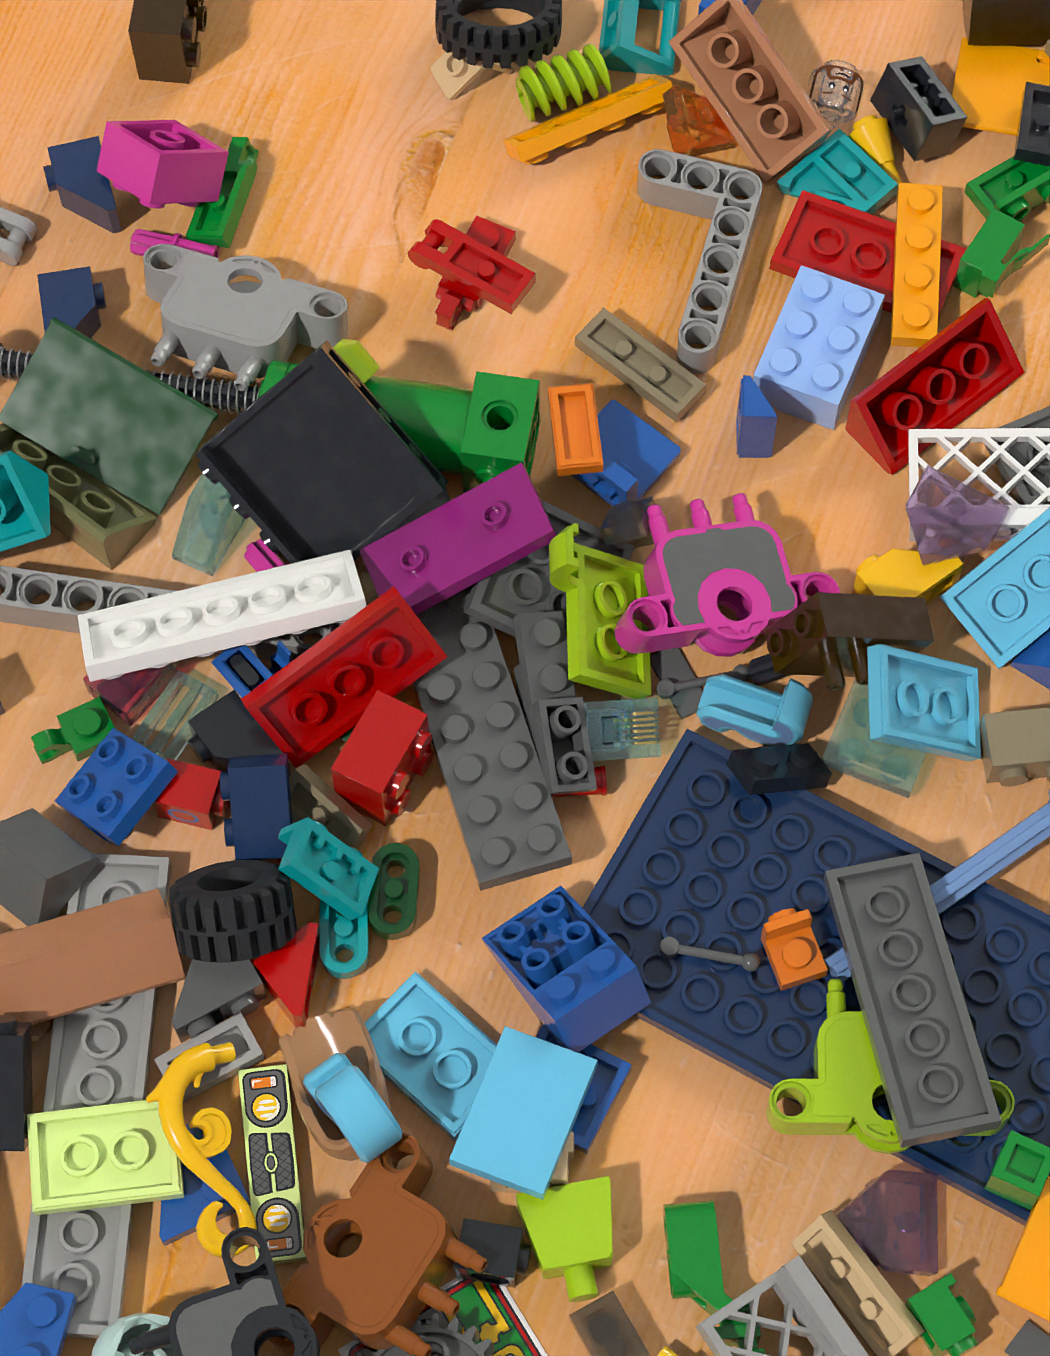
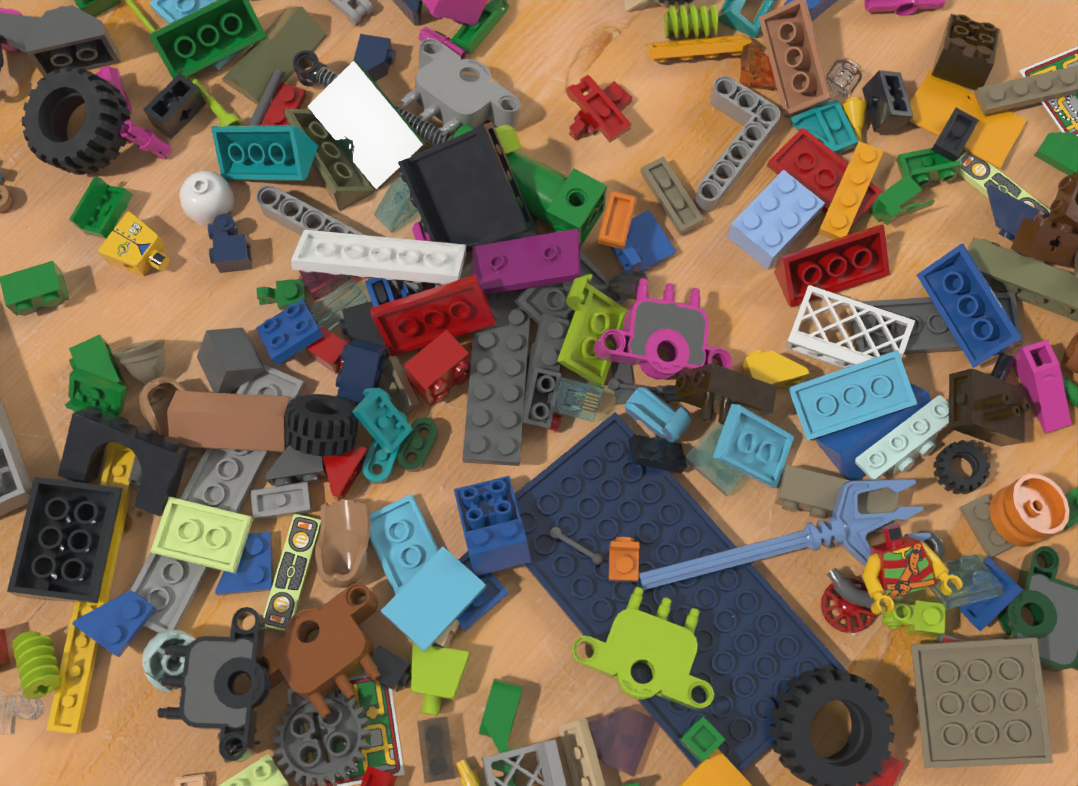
camera: 20 degrees right, 5 degrees up
(217, 1133) = (247, 552): yellow plant -> none
(353, 1106) = (339, 560): medium azure animal -> none
(754, 422) = (721, 250): blue slope -> none
(911, 1001) = (675, 619): dark grey plate -> none
(951, 517) = (812, 345): clear purple slope -> none

